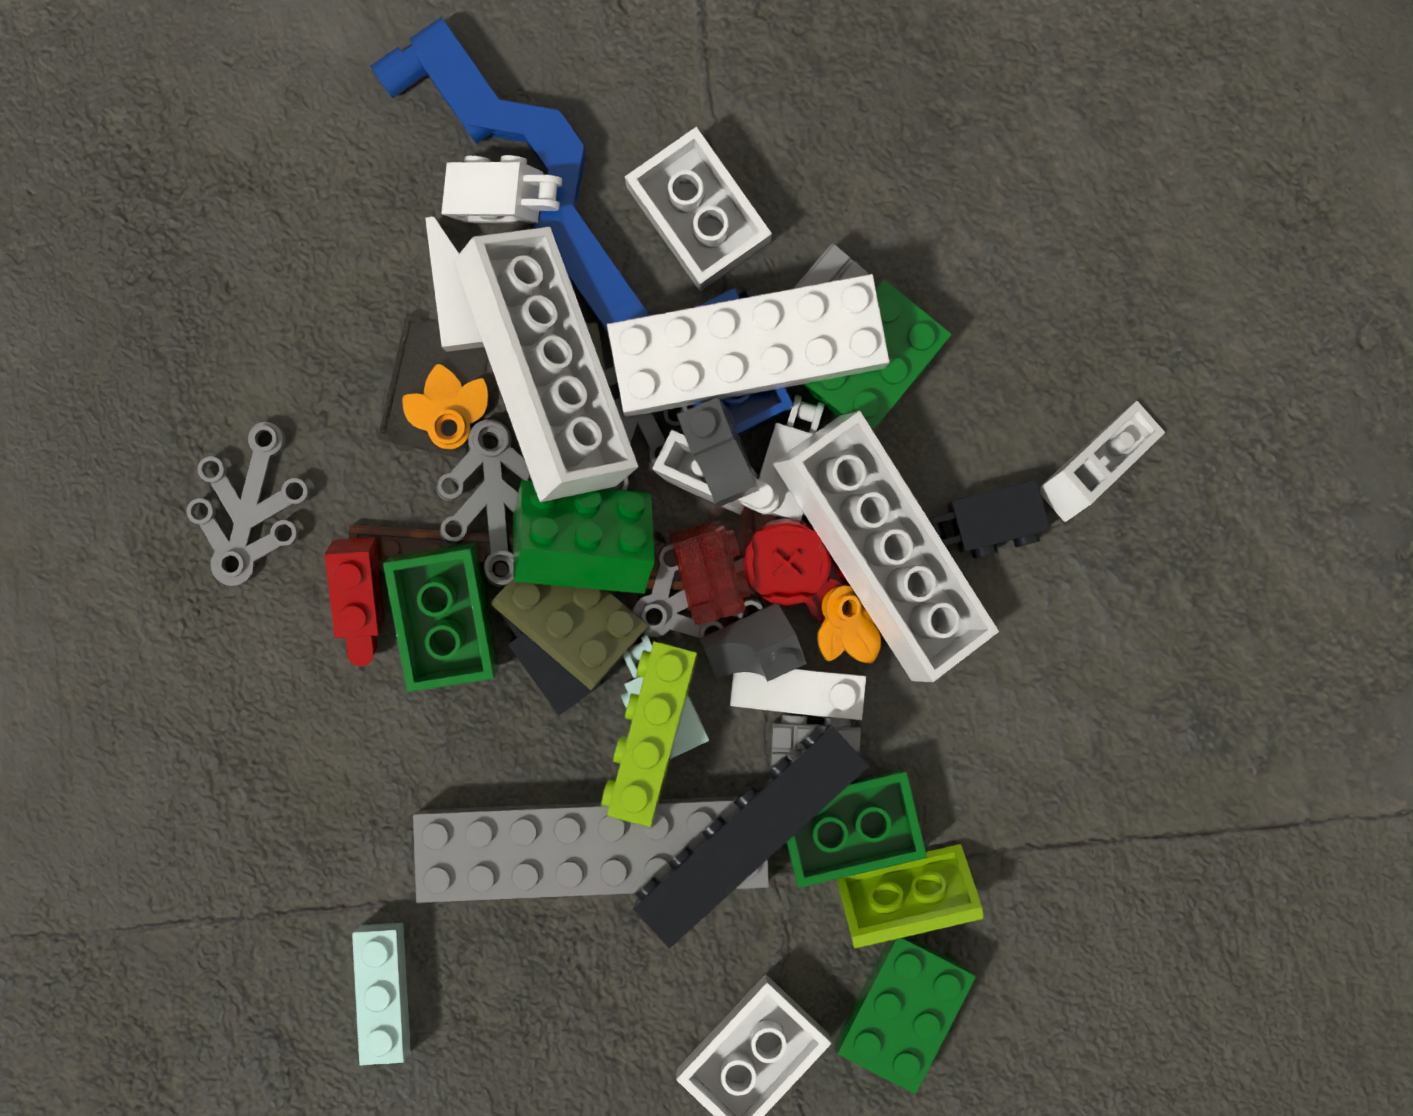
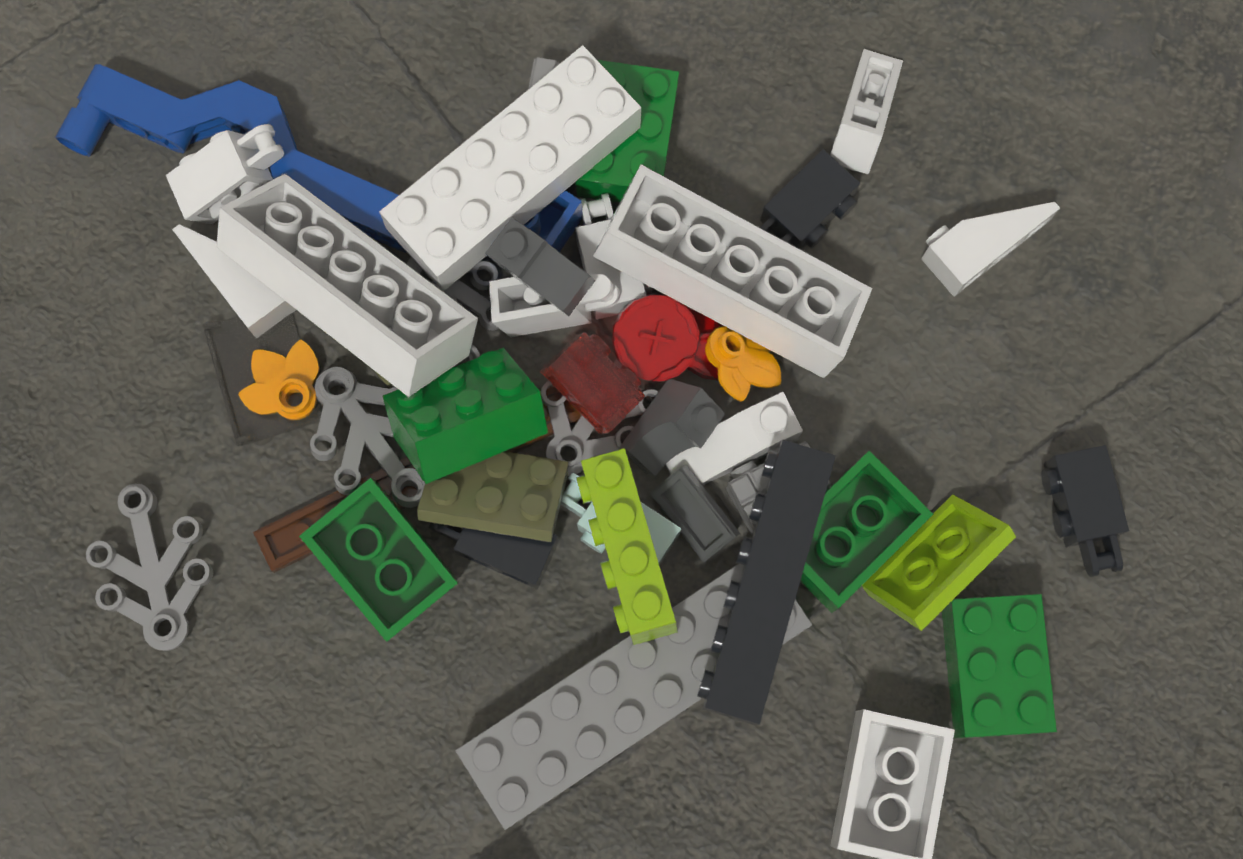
camera: 30 degrees left, 10 degrees down
(355, 595) = (293, 588): red brick -> none
(698, 209) = (404, 94): white brick -> none
(731, 730) = (695, 512): none -> dark grey tile
(1067, 922) = (1087, 505): none -> black brick
(1118, 643) = (981, 242): none -> white slope

